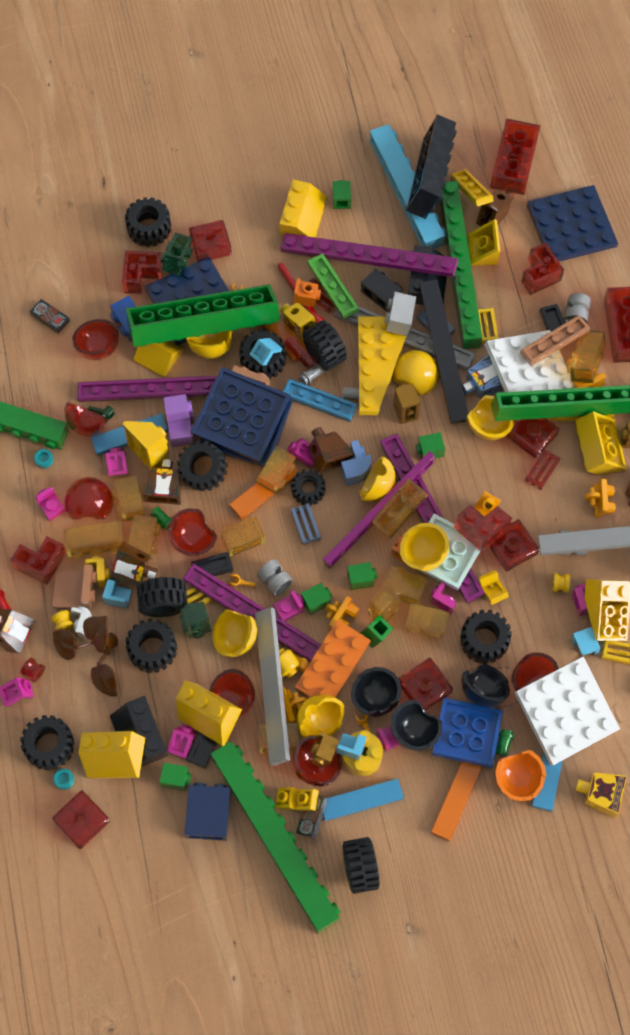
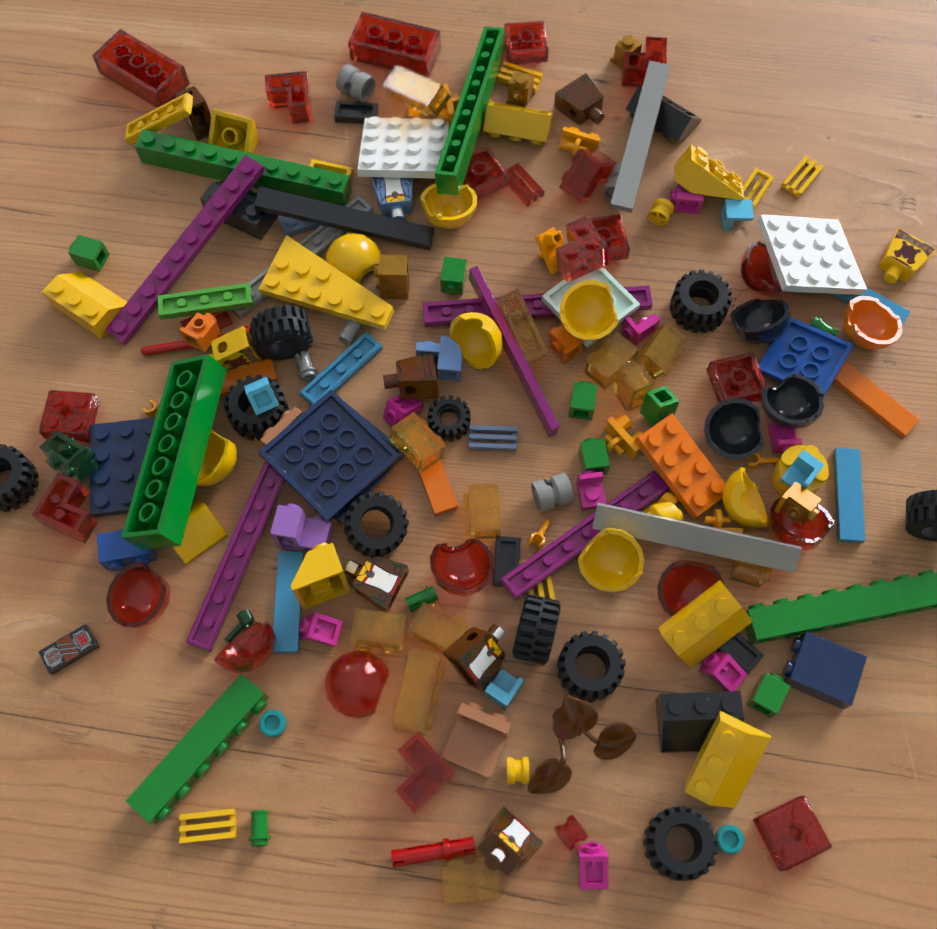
camera: 70 degrees left, 0 degrees up
(49, 503) = (343, 735): dark pink bracket -> none
(81, 613) = (530, 745): white bracket -> none
(103, 572) = (463, 696): yellow bracket -> none
(195, 620) = (579, 599): clear green brick -> none
(296, 799) = (833, 562): yellow slope -> none
(299, 352) = (275, 364): clear red tile -> none
(311, 820) = (858, 552): tile -> none
(379, 288) = (235, 256): black brick -> none
(400, 314) = (281, 240): light grey brick -> none
(401, 177) = (115, 185): medium azure brick -> none
(432, 167) = (112, 142): black brick -> none
(492, 587) = (645, 275): yellow bracket -> none
(555, 340) = (387, 110): nougat tile -> none
(569, 510) = (586, 171): none -> clear red brick
(572, 223) = (245, 52): dark blue plate -> none

